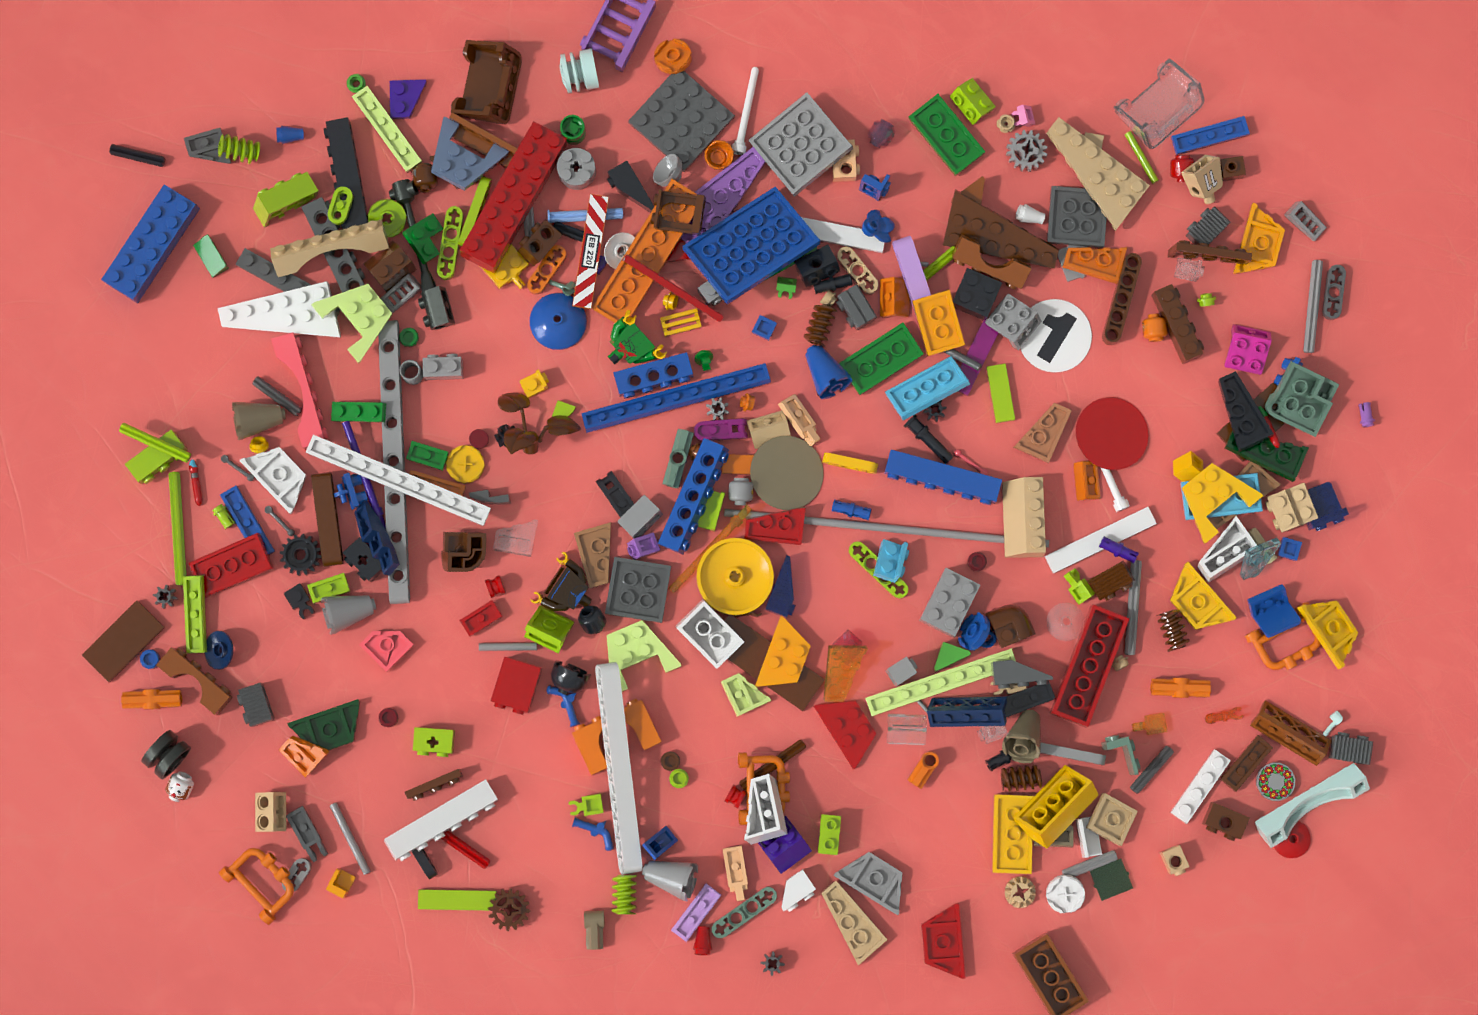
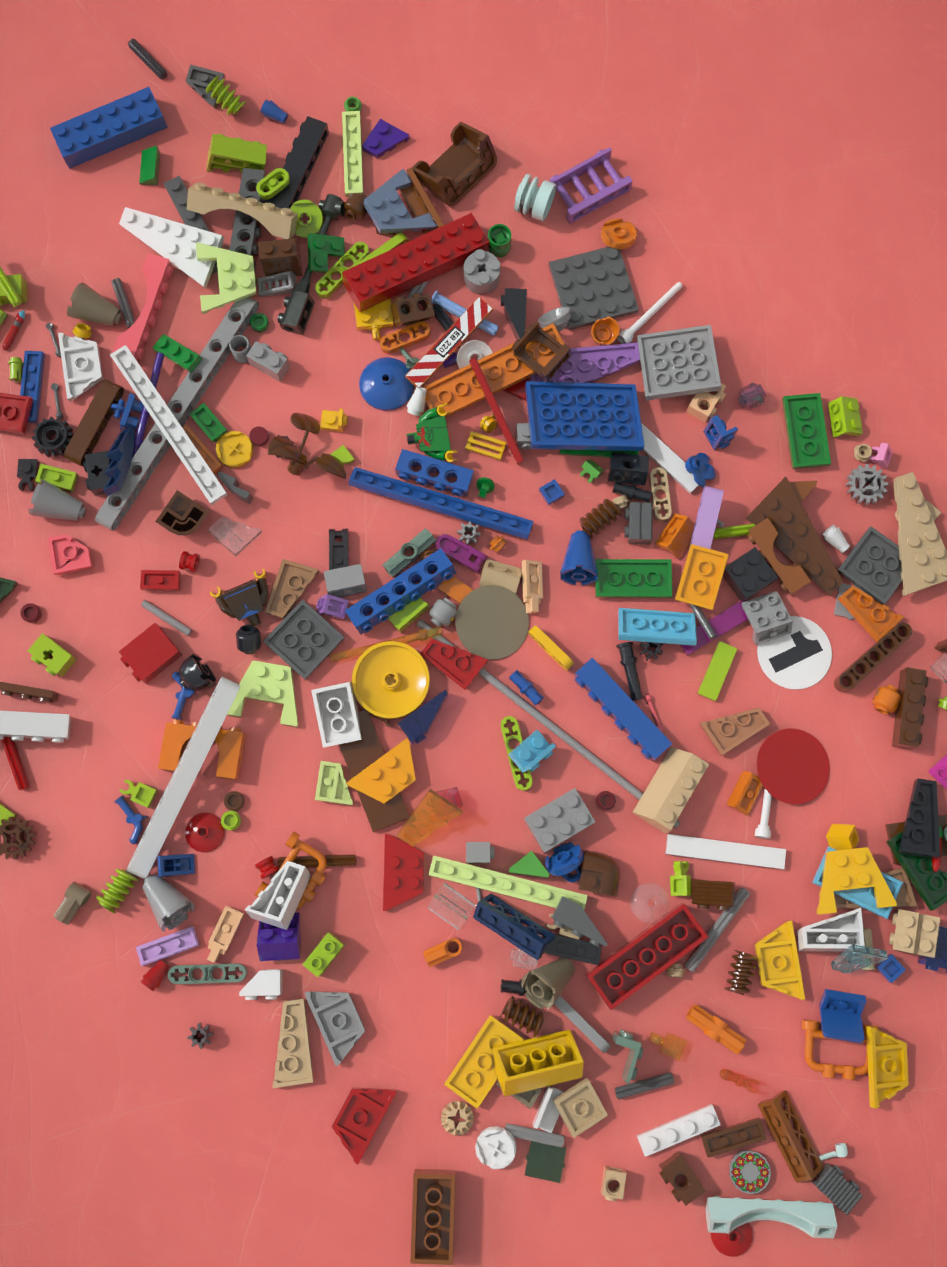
camera: 35 degrees right, 5 degrees down
(548, 629) = (208, 623): lime bracket -> none
(598, 324) = (417, 402): none -> white cone
(666, 812) = (213, 836): none -> red dish
(1118, 549) = (736, 870): dark purple pin -> none

